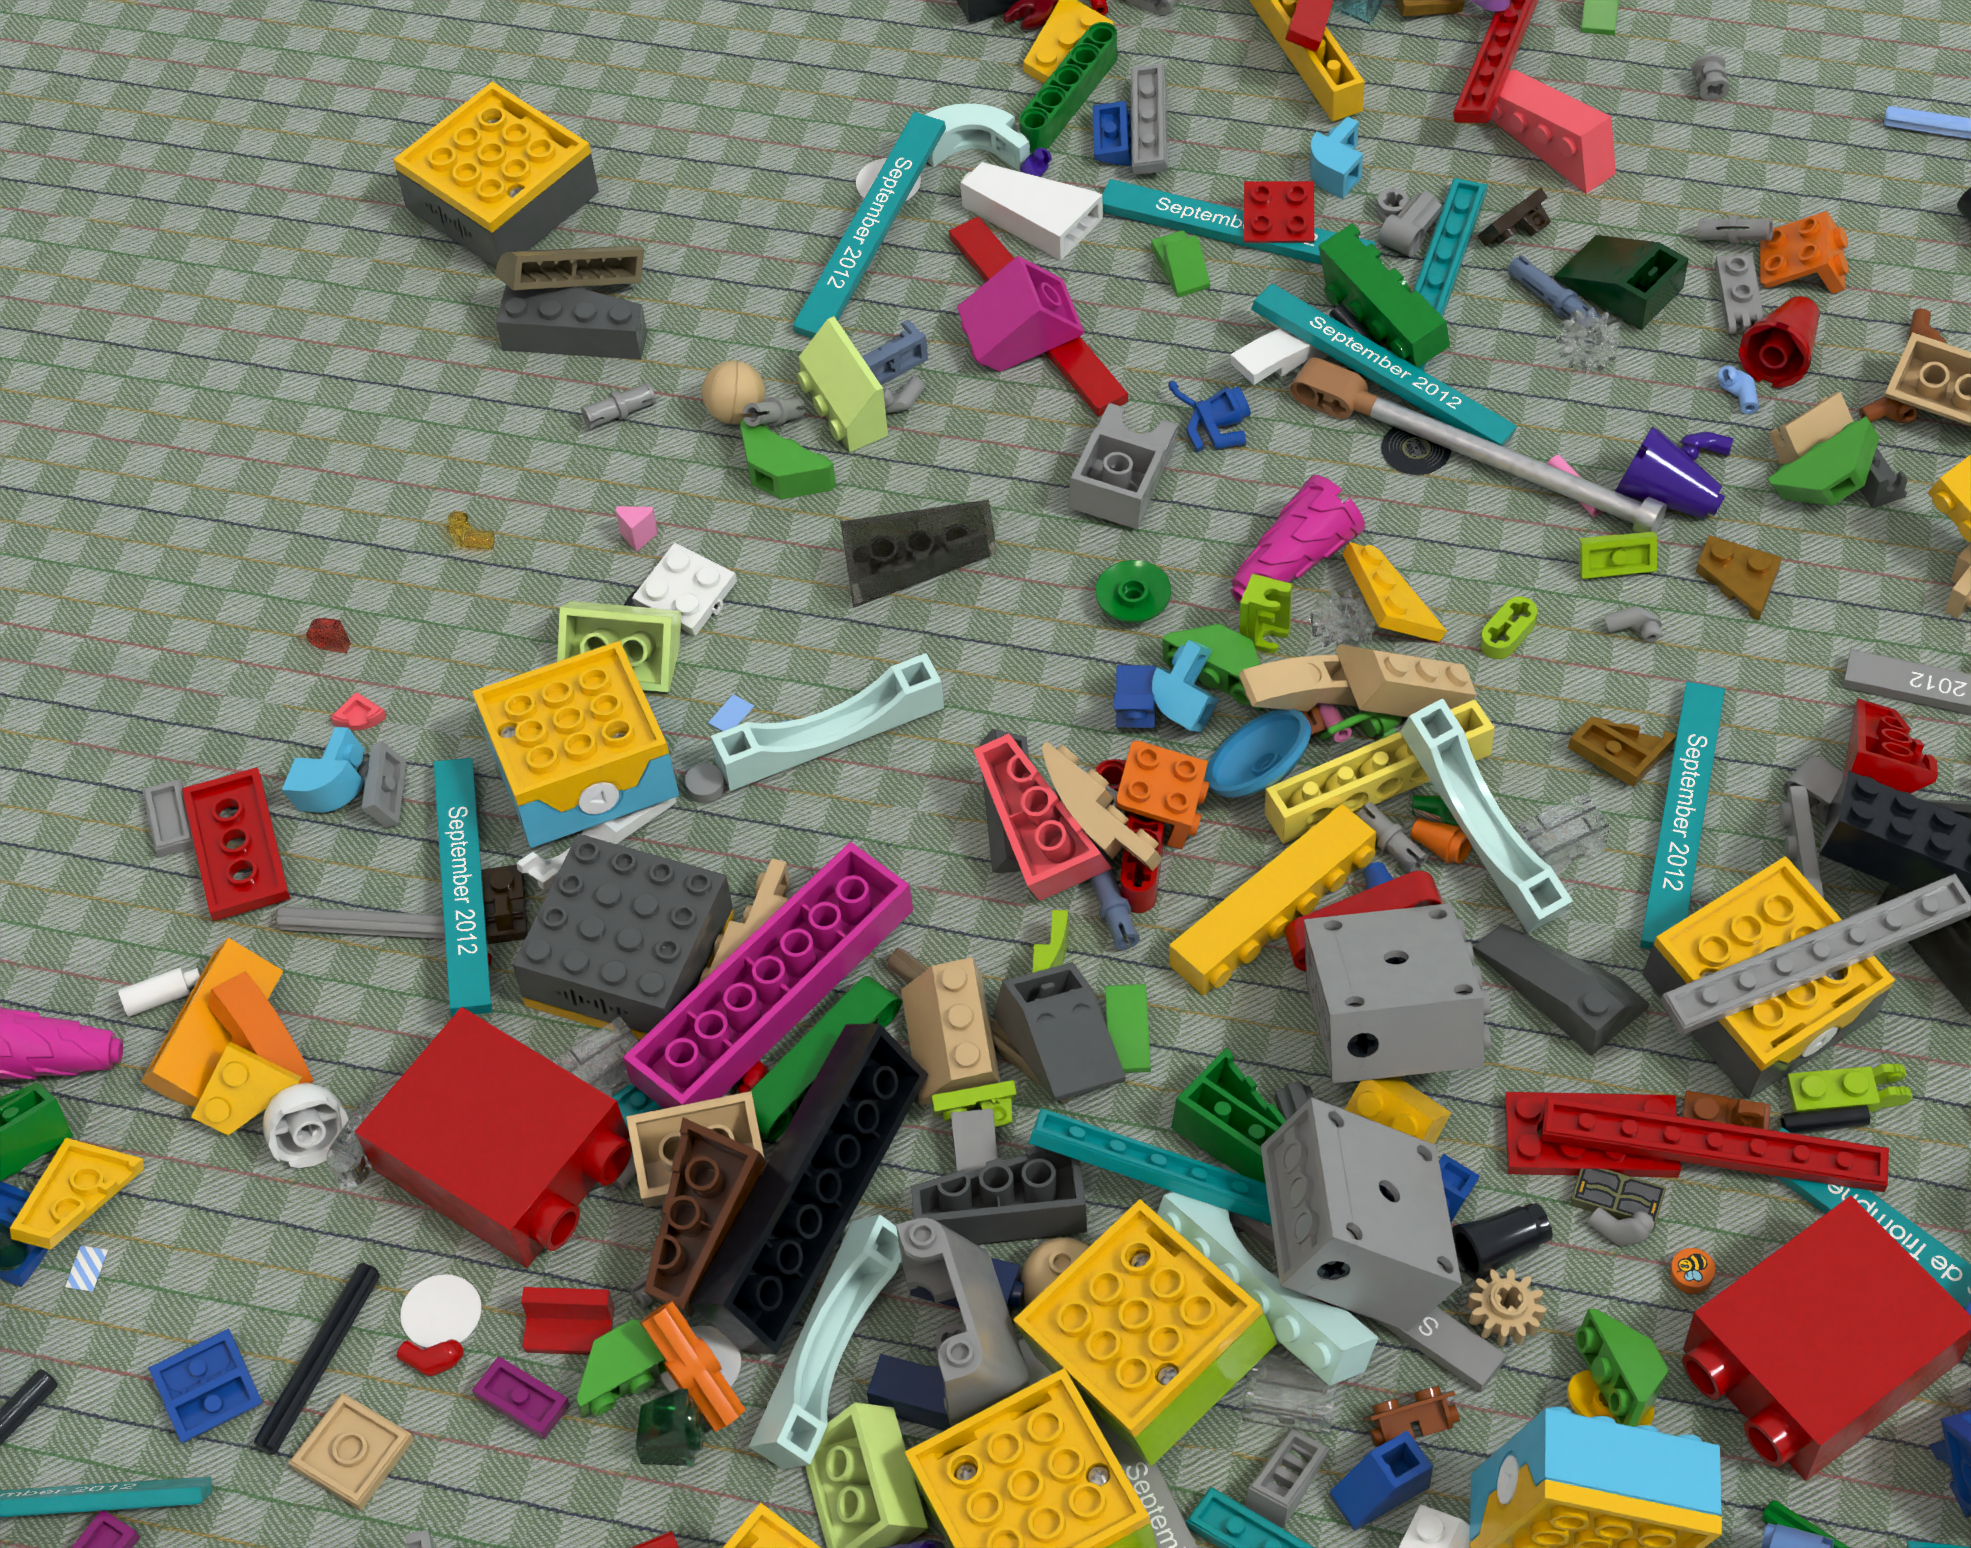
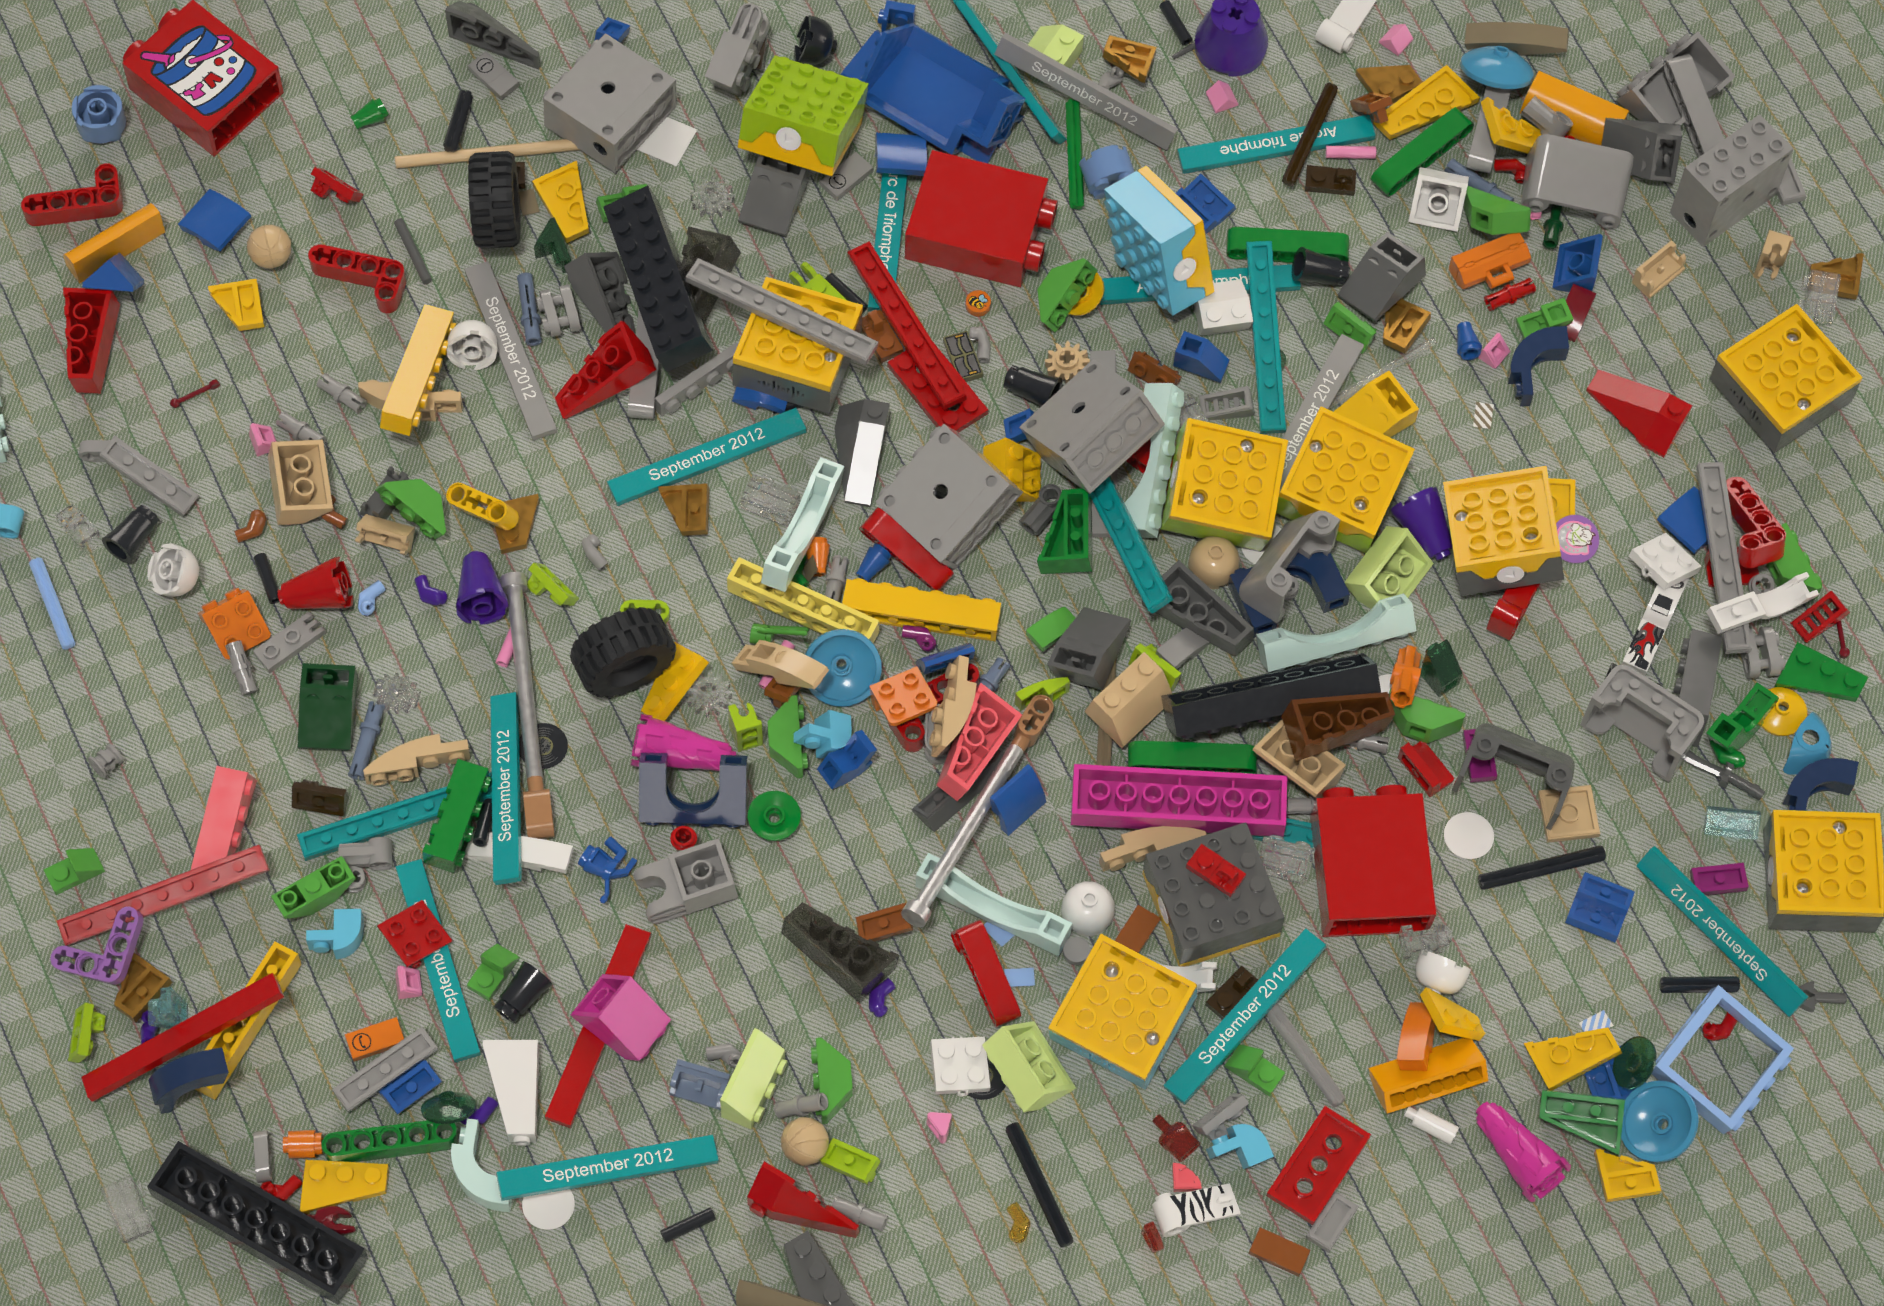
camera: 135 degrees left, 10 degrees up
(193, 745) = (1279, 1252): none -> dark orange tile
(313, 693) = (1195, 1207): none -> white door
(407, 731) = (1176, 1138): none -> clear red piece
(408, 860) = (1253, 1068): none -> bright green slope
(433, 1359) = (1498, 813): red arm -> none
(459, 1429) = (1495, 741): none -> dark grey windscreen
(488, 577) = (1039, 1185): none -> black axle
(630, 920) = (1215, 870): none -> red hinge
(665, 839) = (1138, 929): none -> dark orange tile
(675, 423) = (850, 1161): none -> lime hinge
(676, 356) = (780, 1200): none -> red wedge
(741, 824) = (1088, 908): none -> white cylinder
(753, 268) = (687, 1225): none -> black piece
(764, 662) = (987, 972): none -> red beam
(837, 572) = (877, 997): none -> dark purple arm
(872, 607) = (917, 911): none -> flat silver piece
(905, 613) = (883, 923): none -> dark orange hinge
(929, 822) = (1018, 799): none -> blue slope
(1048, 144) = (448, 1107): none -> clear green dish
(1132, 24) = (303, 1144): none -> orange brick
(1132, 269) = (521, 992): none -> black plant
(1173, 484) = (683, 838): none -> red cone
(1180, 867) = (942, 659): none -> blue slope
(1193, 136) = (374, 1039): none -> orange tile
(1198, 540) = (660, 805): none -> arch
(1226, 883) = (921, 635): none -> magenta arm
(1229, 187) = (408, 982): none -> bright pink slope
(1402, 147) = (314, 890): none -> bright green slope
(1402, 682) = (735, 624): tan slope -> none
(1451, 528) = (623, 652): none -> black tyre
(1491, 320) = (405, 759): none -> tan slope
(1778, 533) = (470, 502): none -> yellow beam
(1848, 316) = (267, 577): none -> black piece
(1908, 227) = (173, 570): none -> white cylinder

